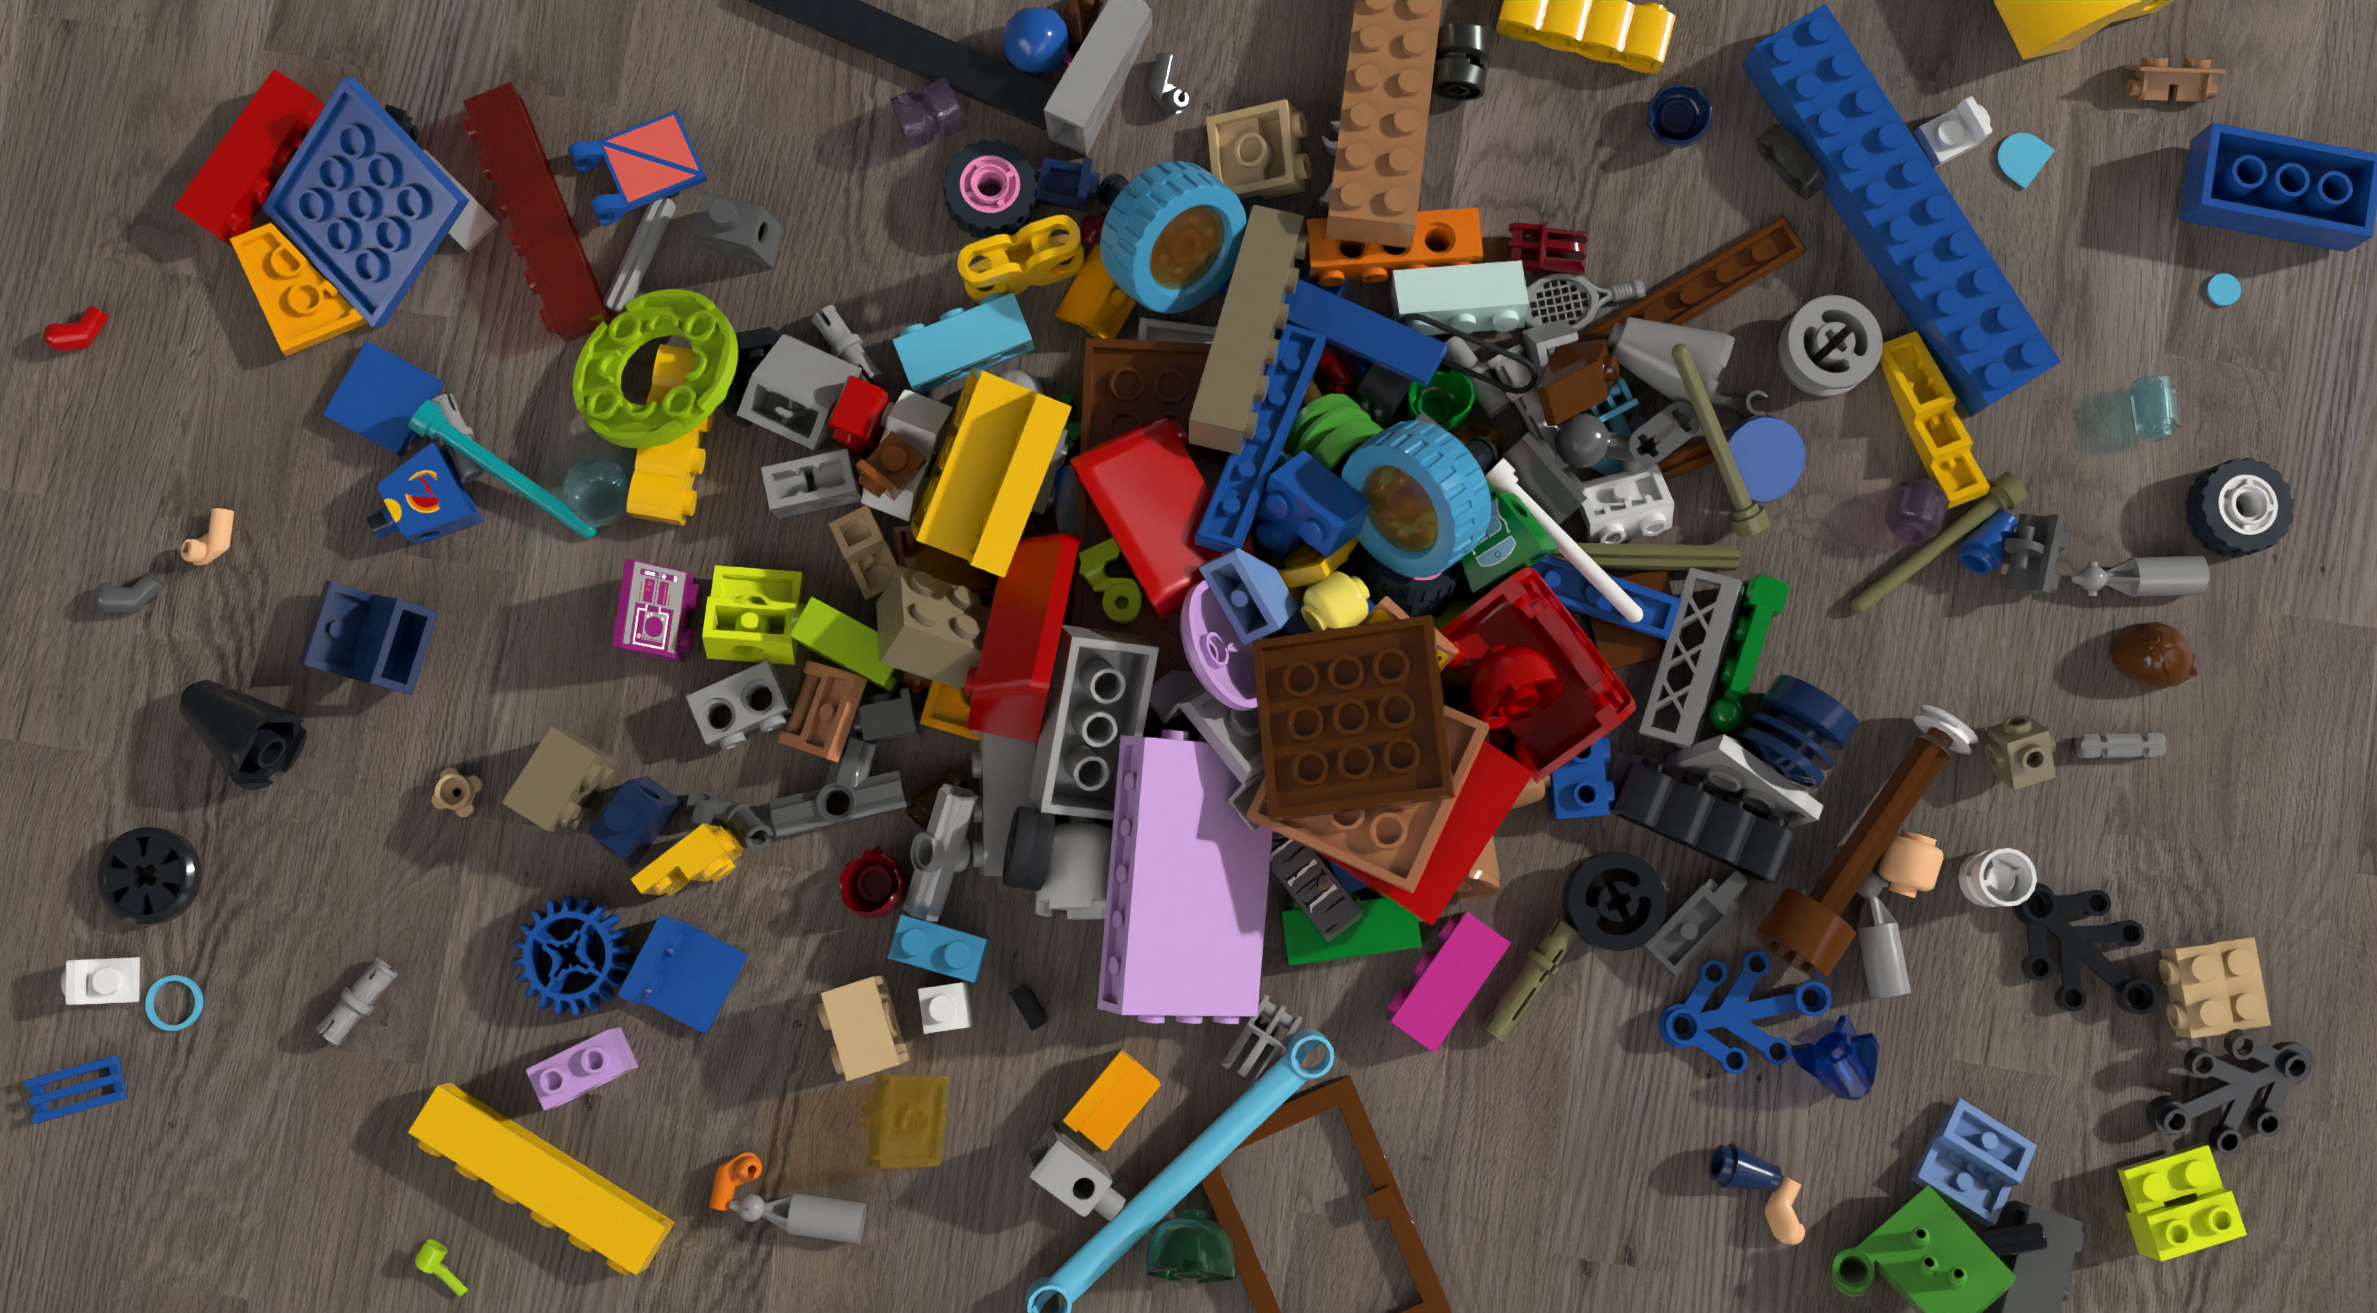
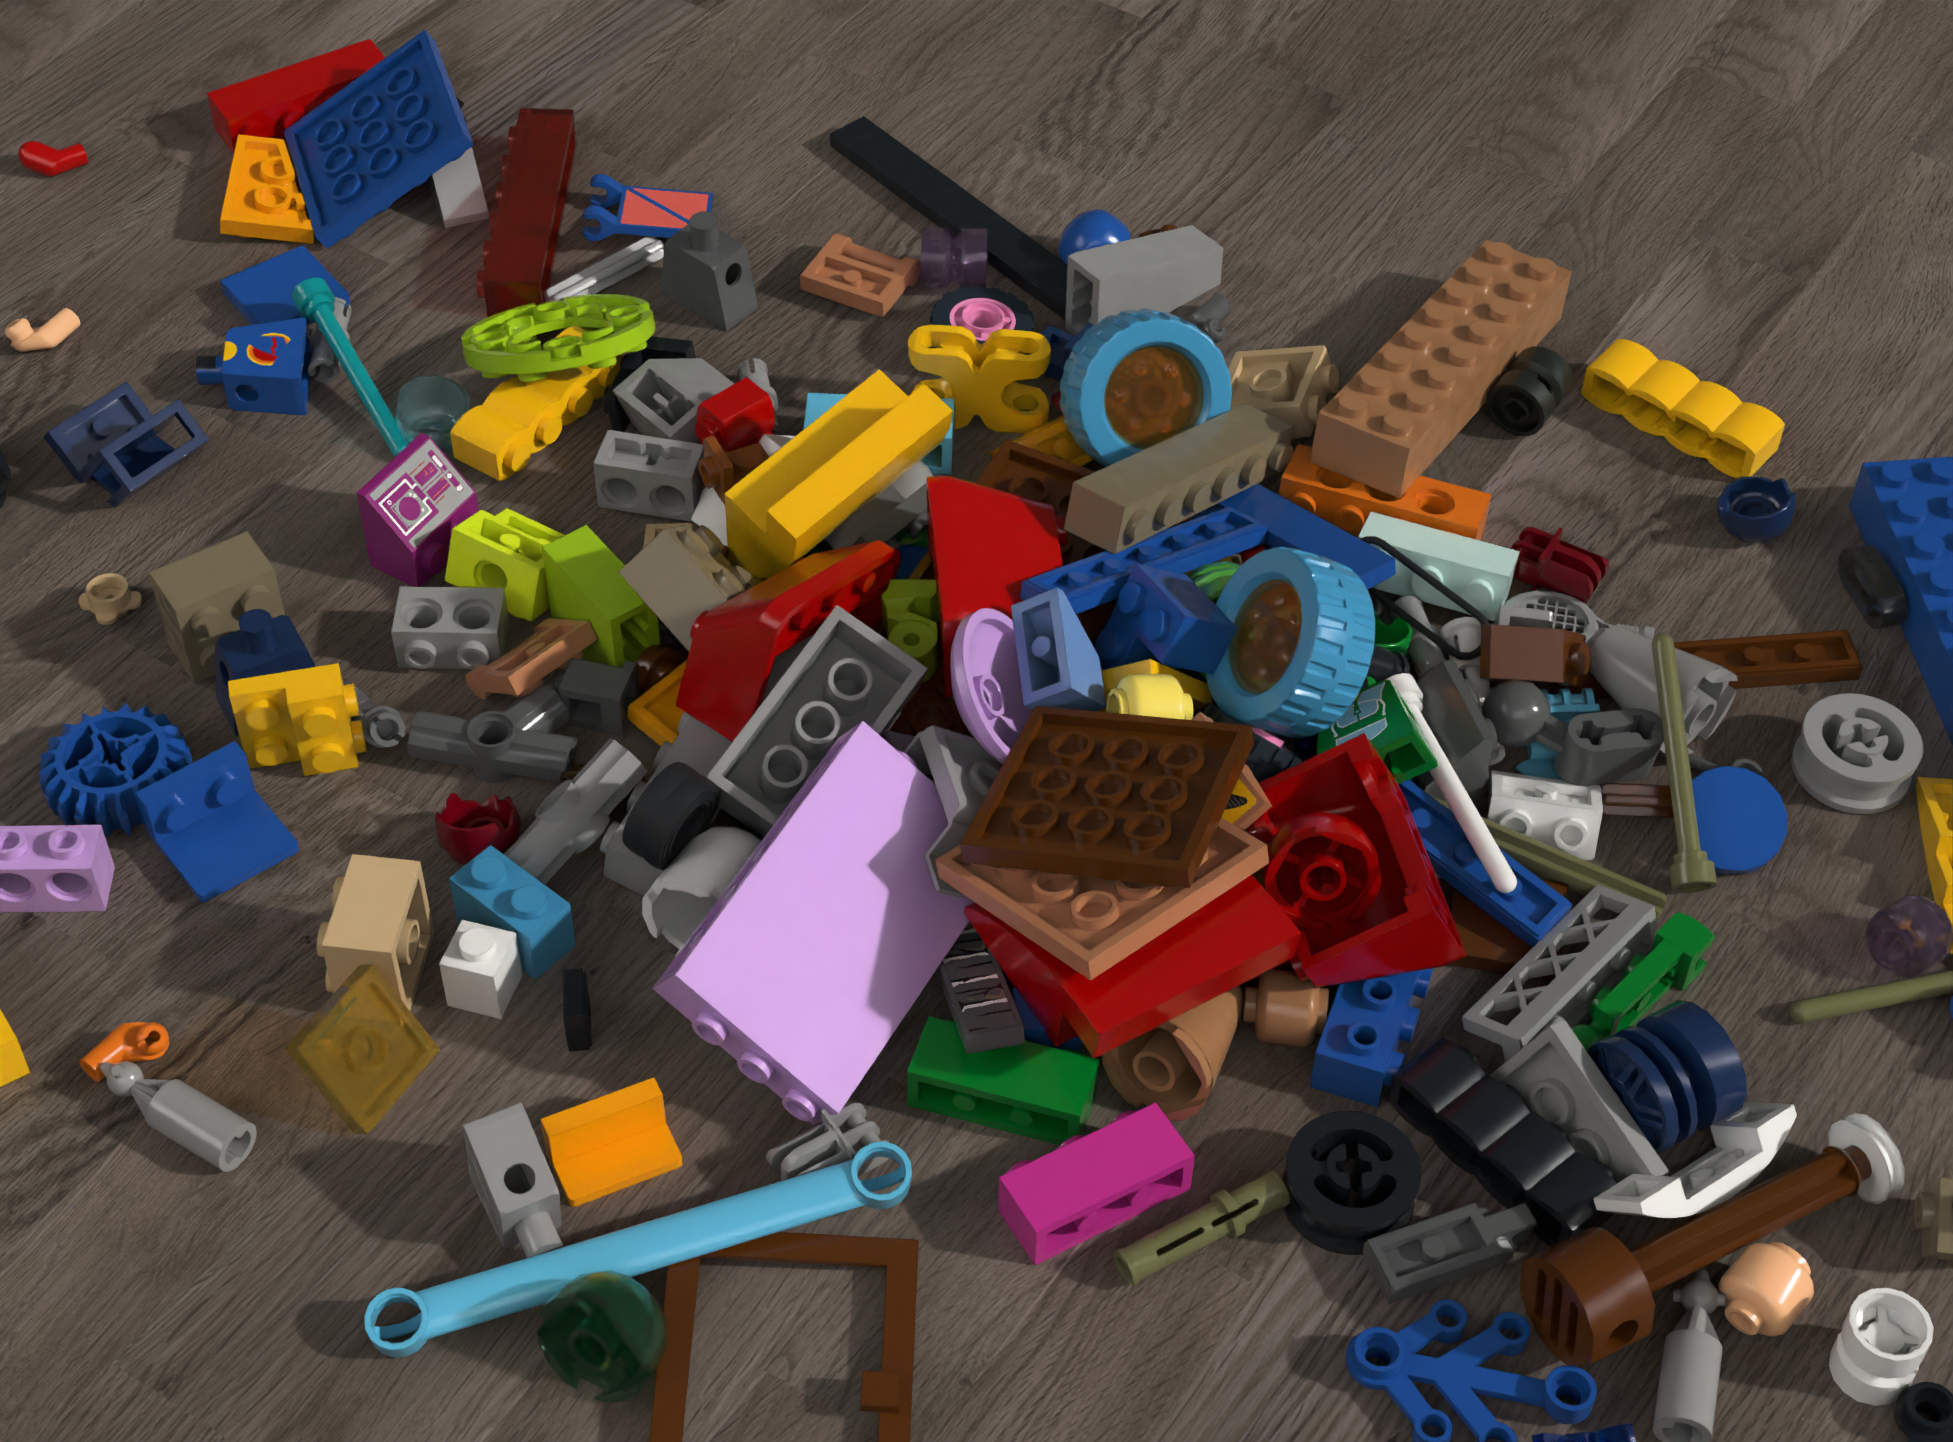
camera: 25 degrees right, 35 degrees down
(852, 172) = (859, 276): none -> nougat plate
(1844, 792) = (1742, 1151): none -> white slope

